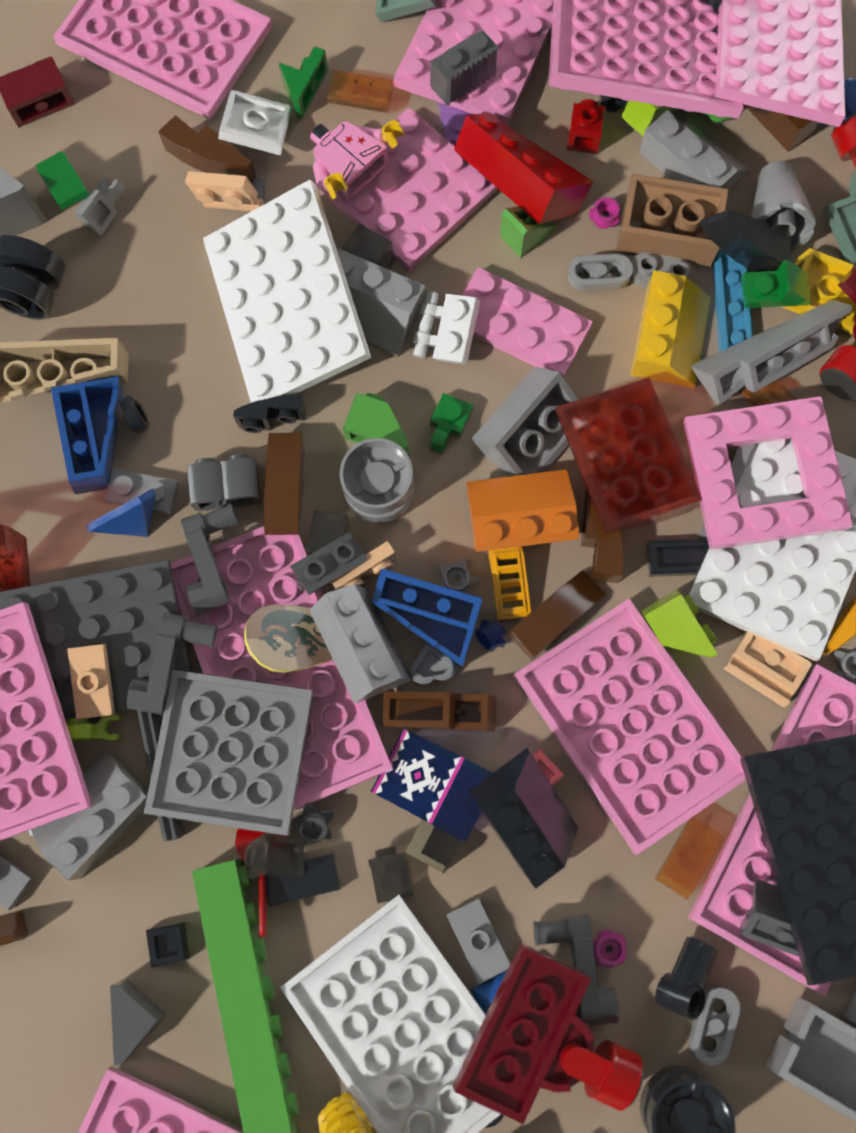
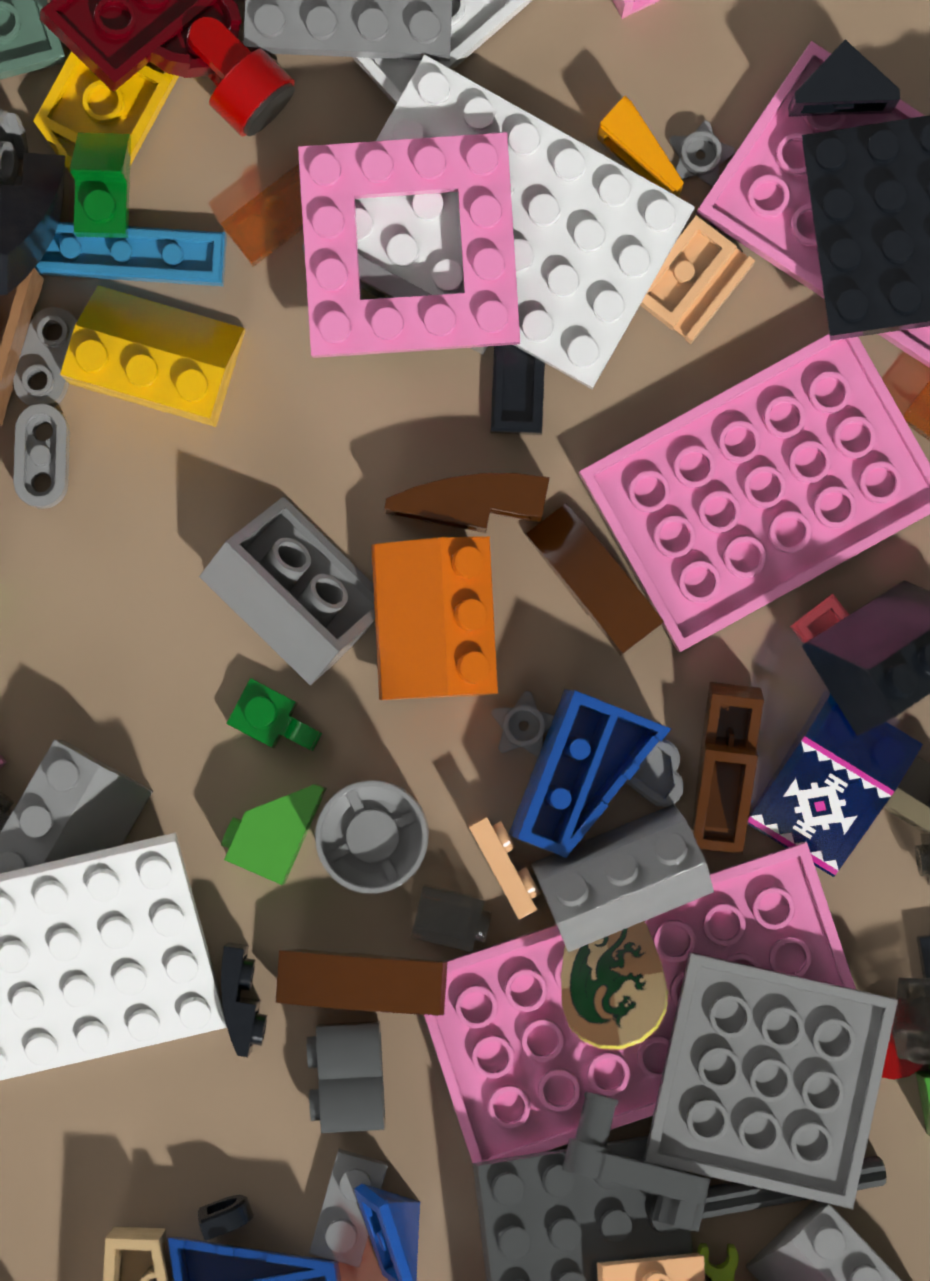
camera: 90 degrees left, 10 degrees up
(211, 590) = (526, 1099): dark grey beam -> none
(315, 833) = (889, 962): dark grey plate -> none
(328, 564) = (500, 918): dark grey hinge -> none
(455, 328) = (125, 696): white plate -> none
(491, 634) = (617, 681): clear blue plate -> none
(497, 584) = (561, 626): light orange slope -> none
(526, 323) = (114, 591): bright pink plate -> none
(628, 457) = (365, 450): clear red slope -> none
(677, 627) = (629, 405): lime slope -> none
(771, 353) = (206, 205): light grey wedge -> none

